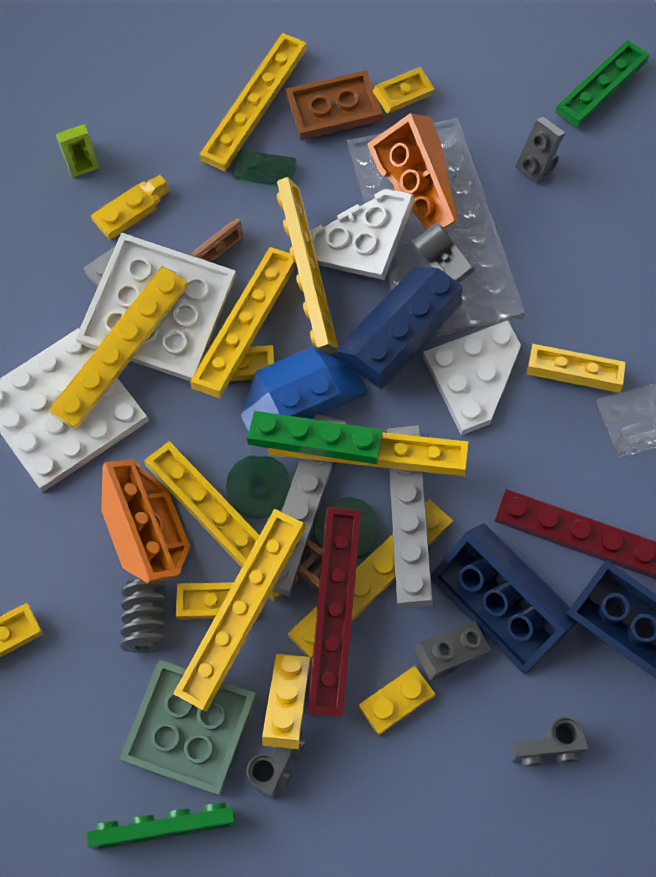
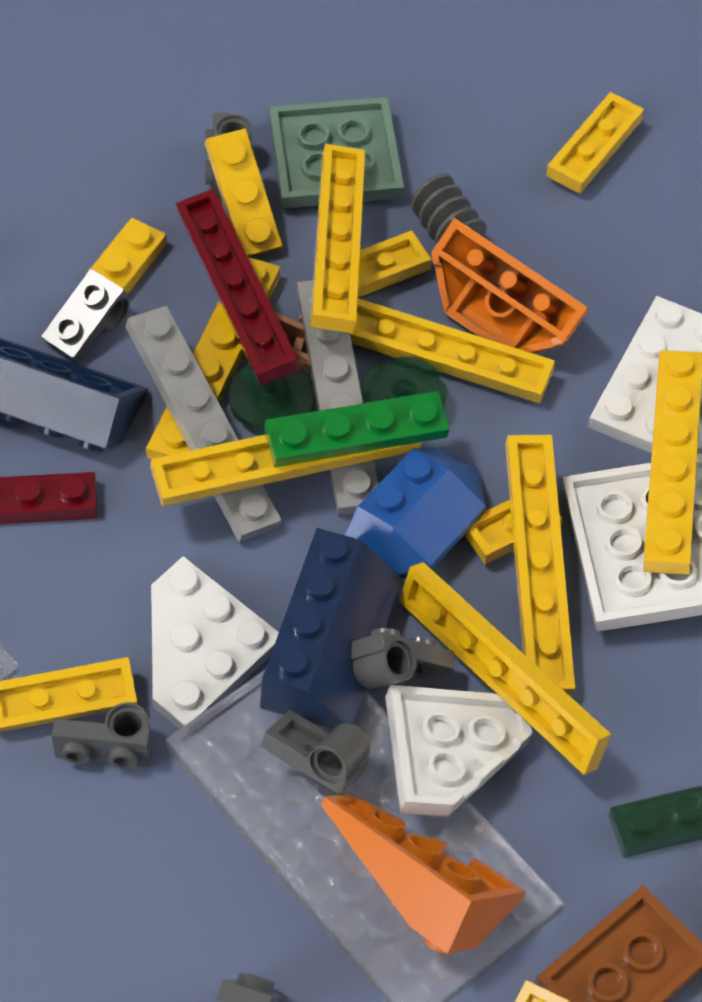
camera: 150 degrees right, 10 degrees down
(146, 828) = (307, 66): green plate -> none
(219, 242) = (658, 670): nougat slope -> none
(368, 290) = (391, 659): none -> dark grey plate
(563, 328) = (100, 742): none -> dark grey plate

